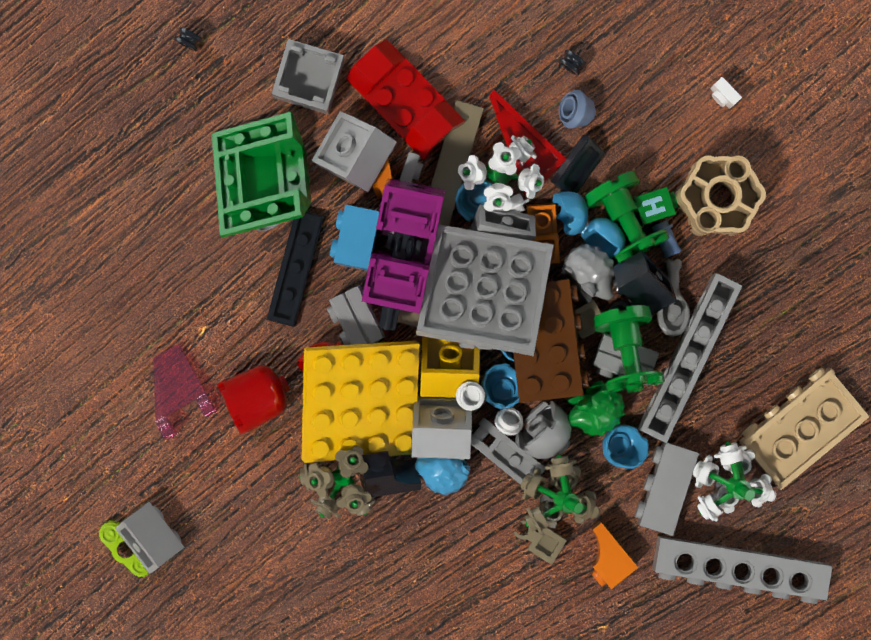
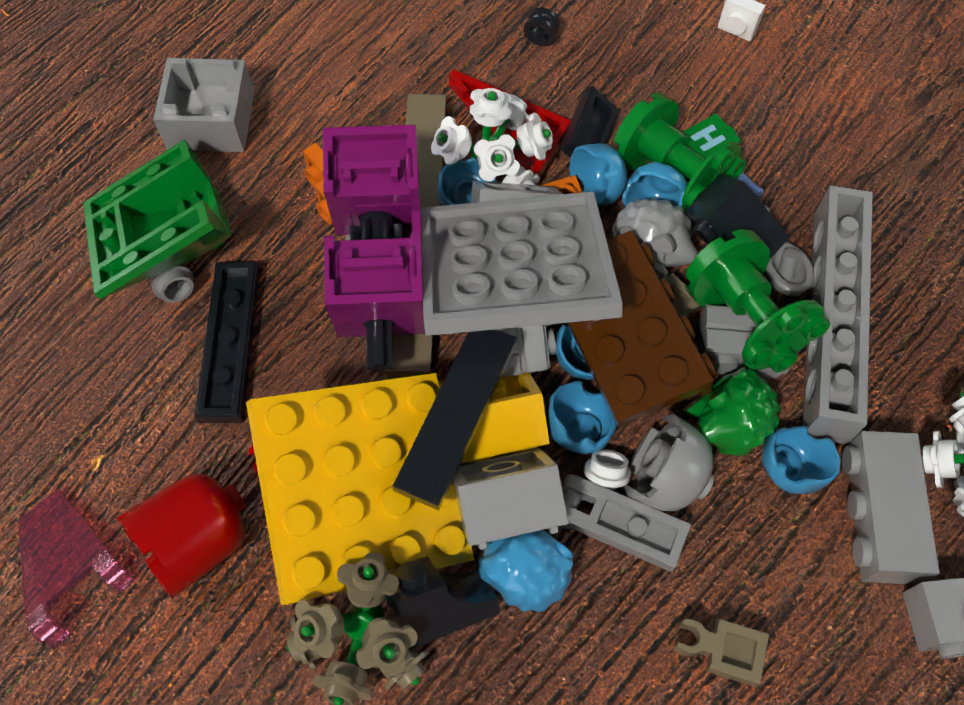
camera: 10 degrees left, 25 degrees down
(188, 39) = (37, 101): black bush -> none
(354, 151) = (280, 161): light grey container -> none
(355, 317) = (323, 364): light grey brick -> none
(356, 237) = (300, 261): dark azure brick -> none
(404, 98) = (329, 96): red piece -> none
(420, 382) = (454, 417): none -> black tile
(470, 395) = (537, 431): white plate -> none
(551, 510) = (726, 536): dark tan plant -> none
(576, 109) = (566, 67): sand blue cone -> none
(611, 562) = (854, 648): orange arch -> none
(743, 185) = (791, 105): tan piece -> none

